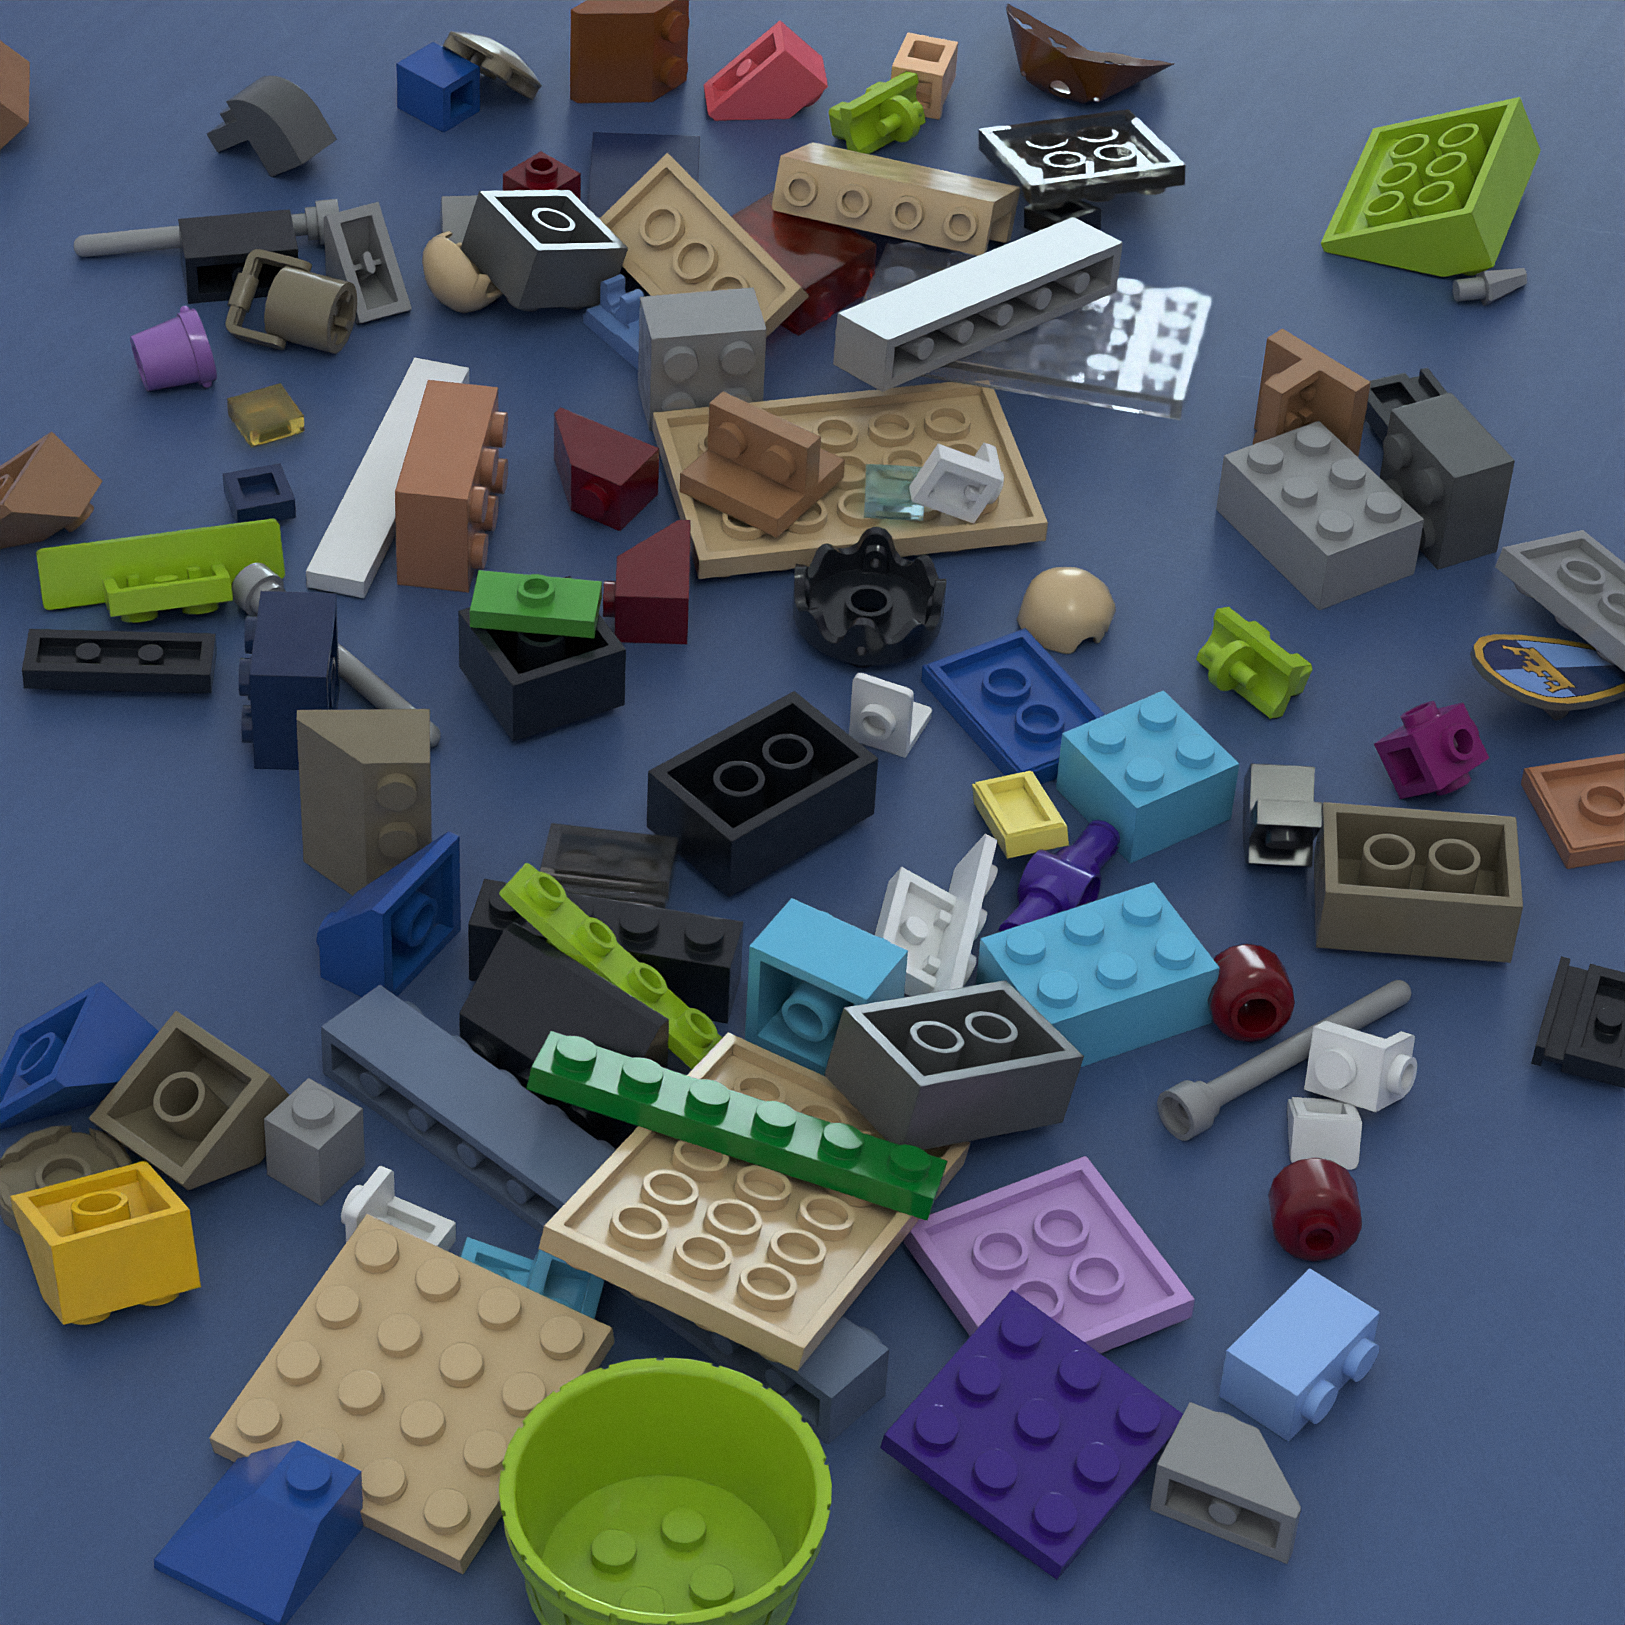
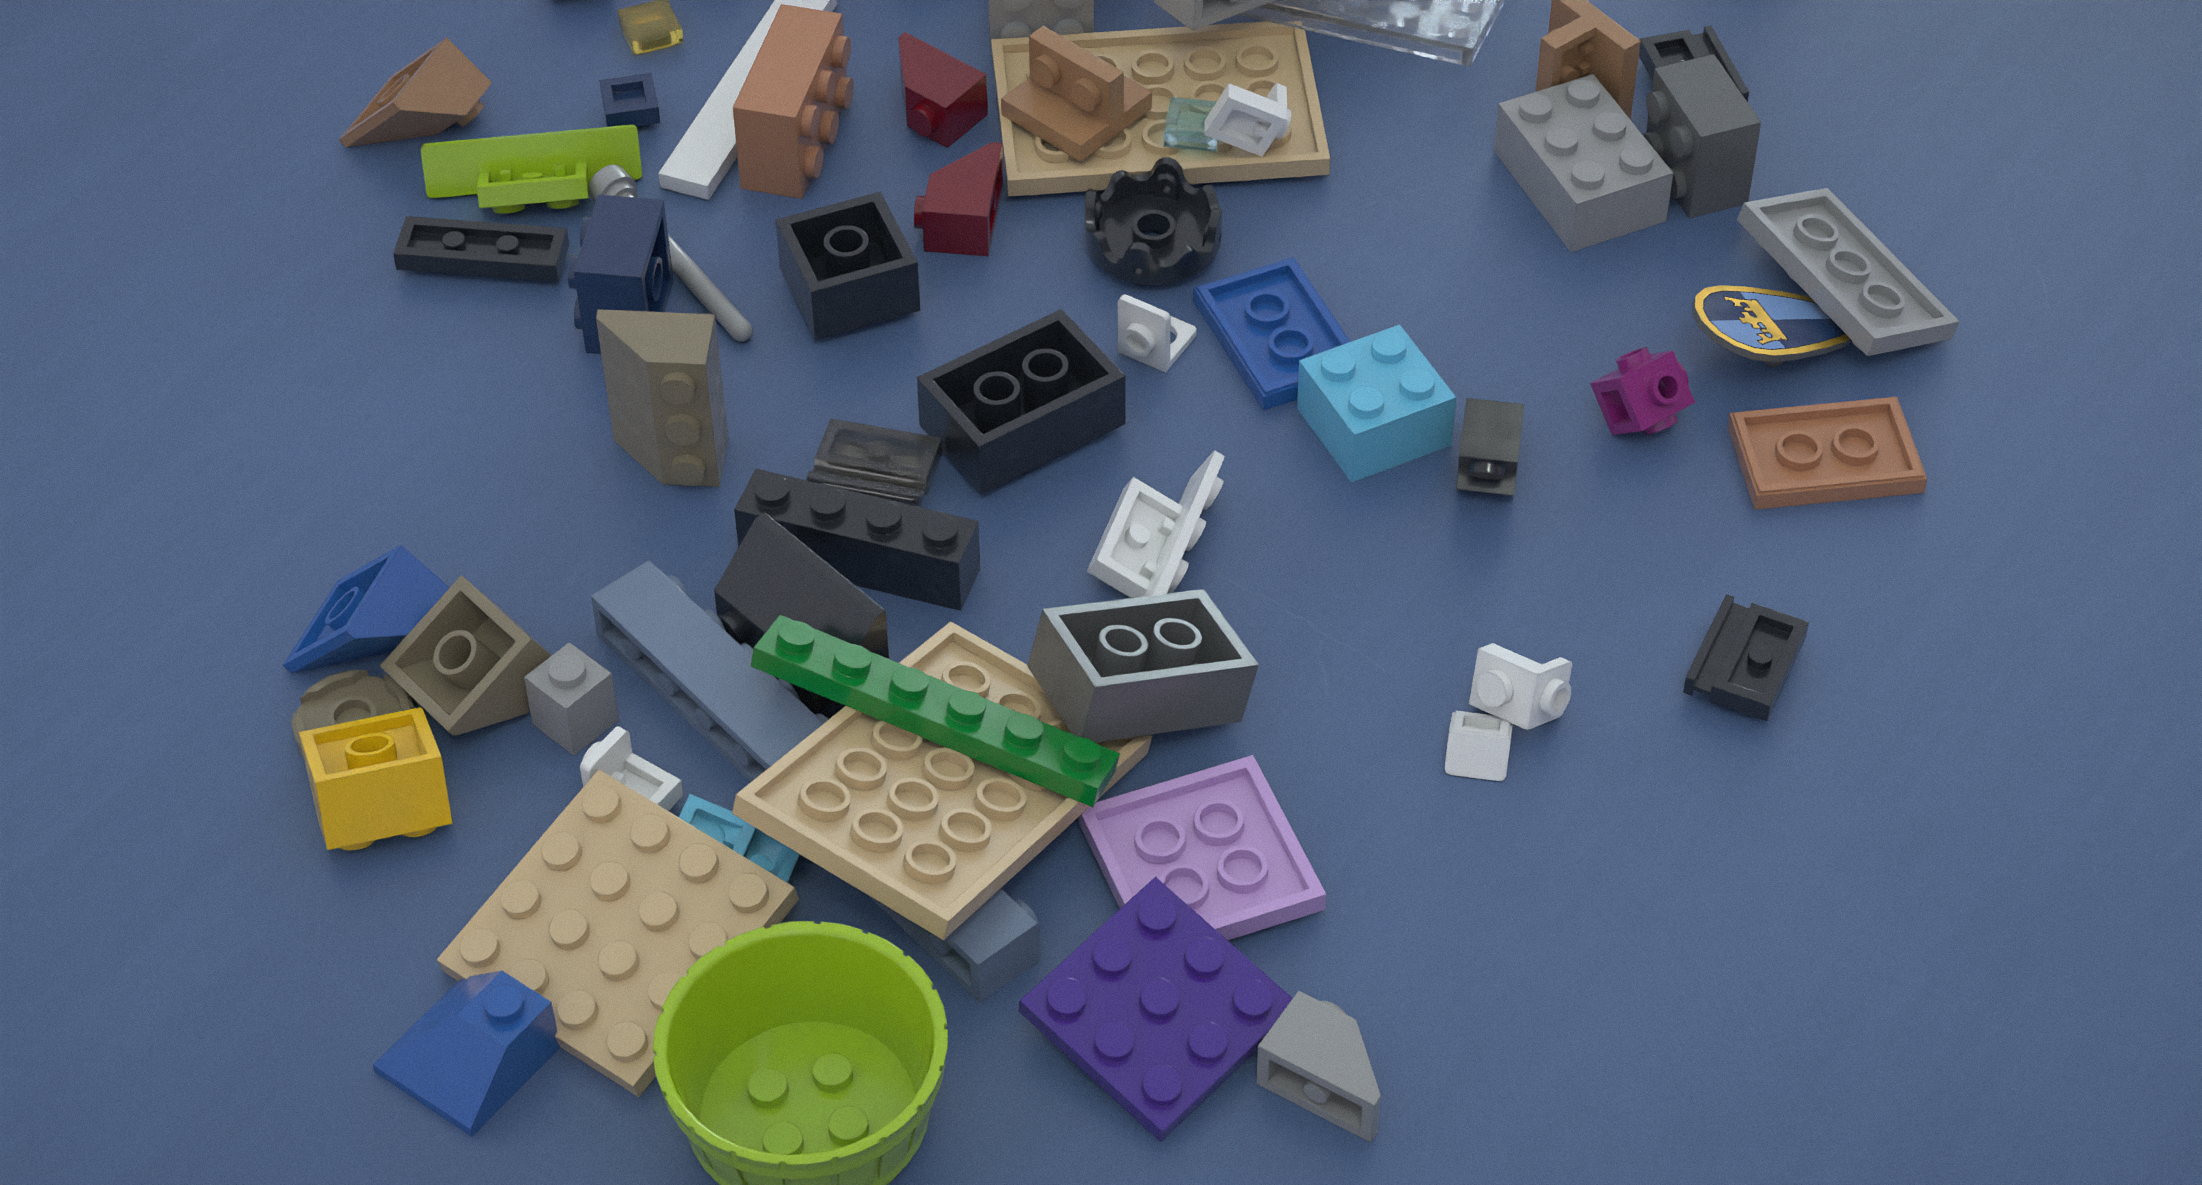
camera: 10 degrees right, 5 degrees up
(395, 922) = (676, 504): blue slope -> none
(535, 604) = (842, 217): bright green plate -> none
(594, 945) = (835, 541): lime bracket -> none
(805, 975) = (1031, 567): medium azure brick -> none
(1020, 814) = (1254, 432): light yellow tile -> none
(1064, 878) = (1277, 503): dark purple pin -> none
(1066, 608) = (1334, 240): tan hair -> none
(1107, 972) = (1301, 587): medium azure brick -> none
(1192, 1106) = (1360, 714): light grey piece -> none
(1251, 993) = (1430, 611): dark red head -> none
(1252, 664) = (1491, 299): lime hips -> none
(1300, 1355) = (1413, 952): light blue brick -> none
(1317, 1204) = (1453, 818): dark red head -> none
(1417, 882) = (1603, 517): dark tan brick -> none

